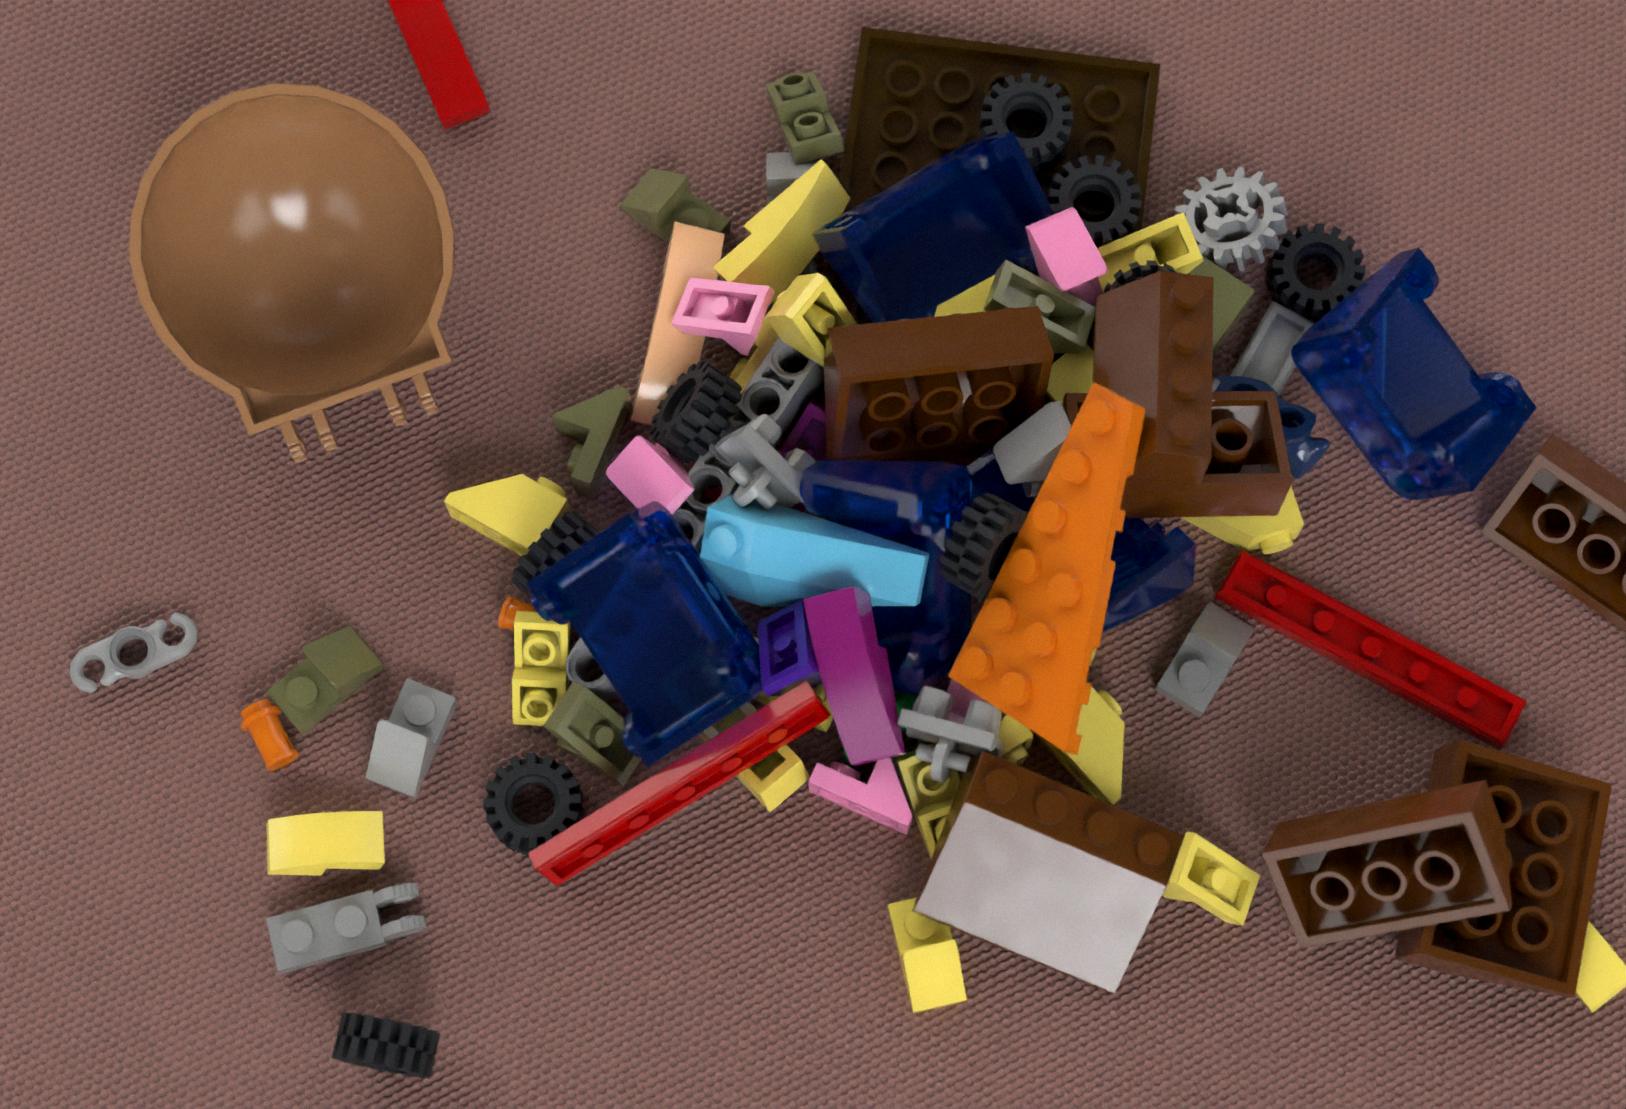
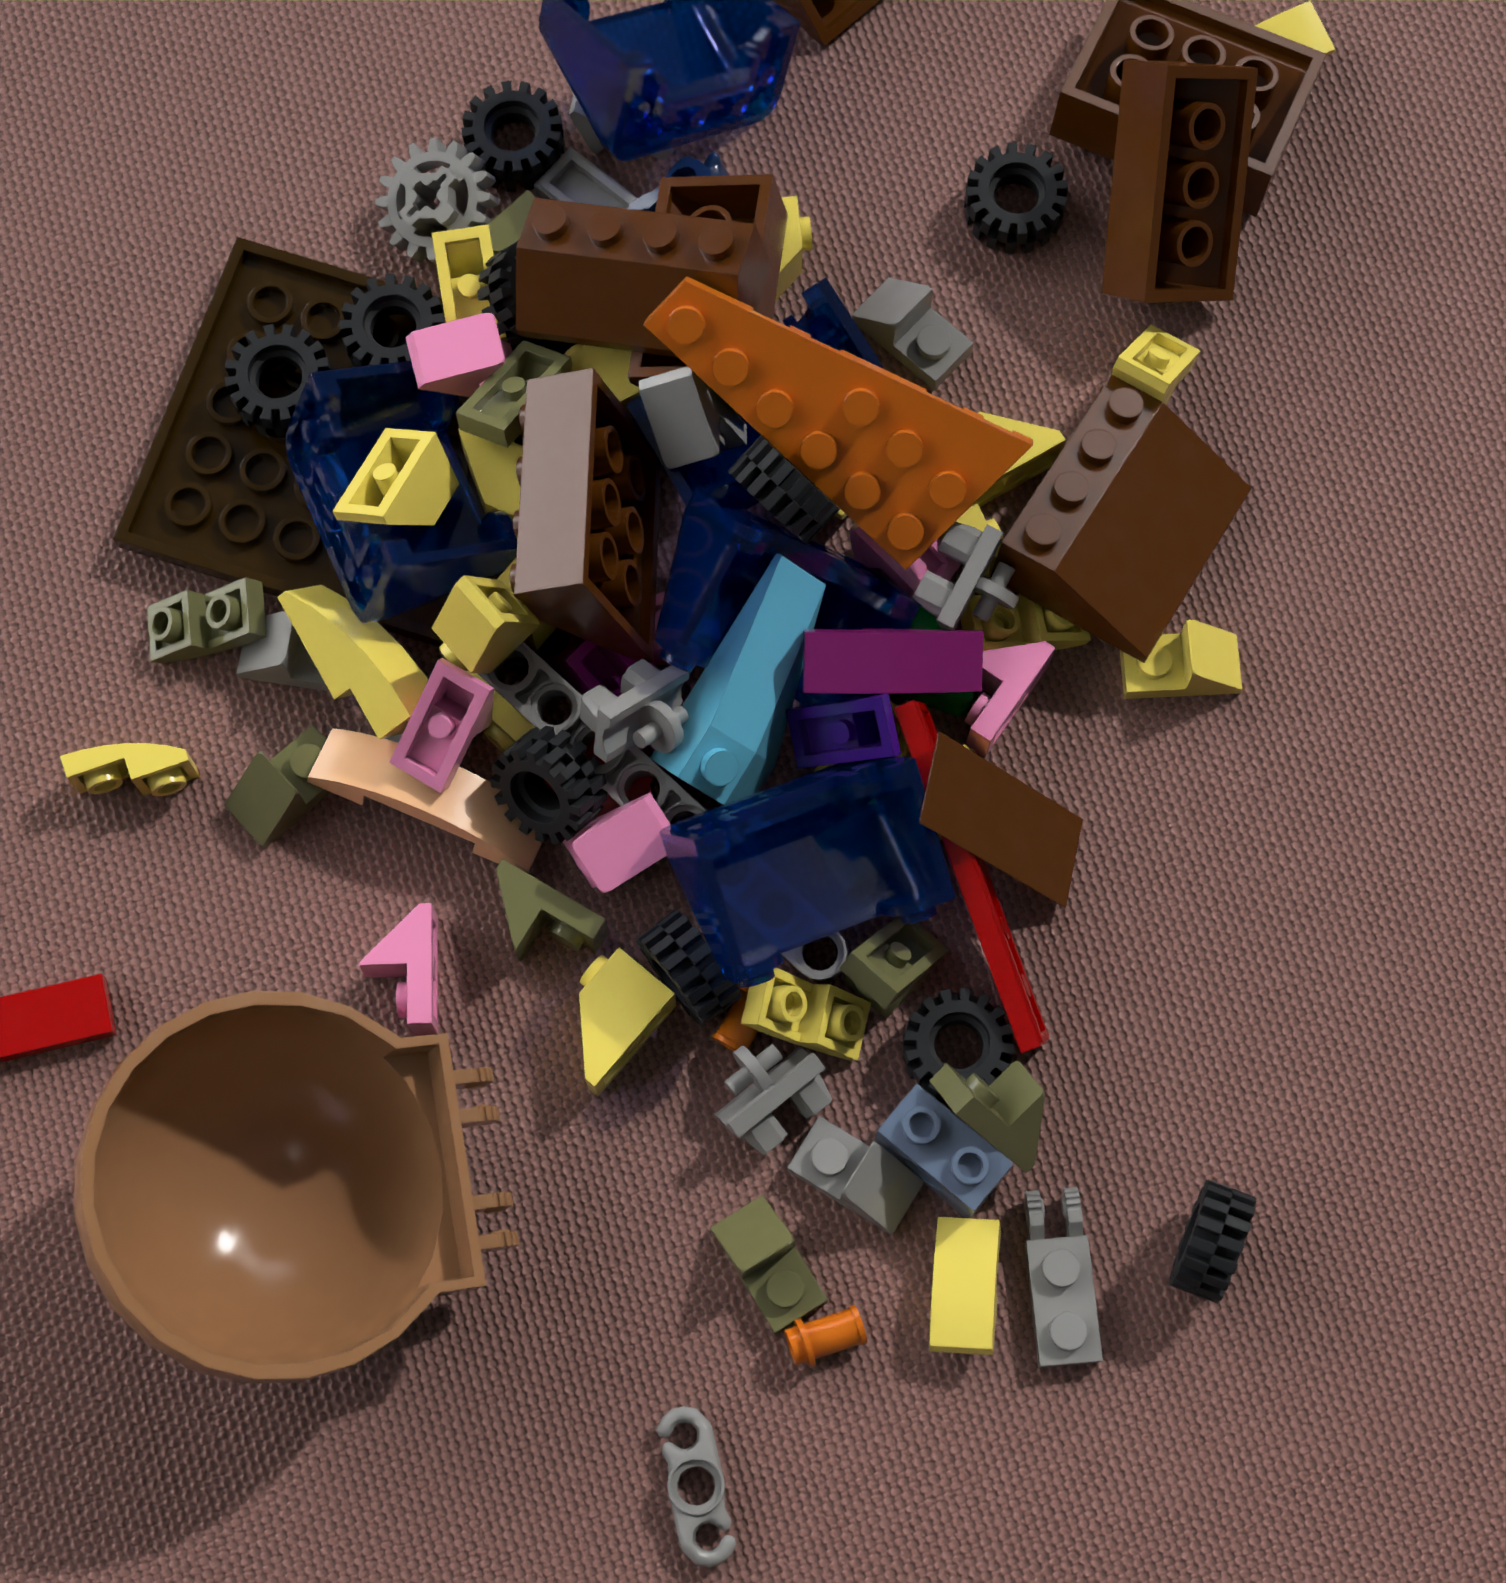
camera: 80 degrees left, 0 degrees up
(435, 803) = (943, 1151): none -> sand blue brick
(464, 834) = (1002, 1113): none -> olive slope
(472, 645) = (791, 1079): none -> light grey hips
(543, 344) = (411, 953): none -> bright pink slope
(664, 88) = (150, 766): none -> light yellow slope
(731, 799) = (1001, 820): none -> reddish brown sticker
(931, 229) = (400, 481): none -> light yellow slope
(1371, 650) = (930, 173): red tile -> none
(1378, 703) = (1015, 169): none -> black tyre

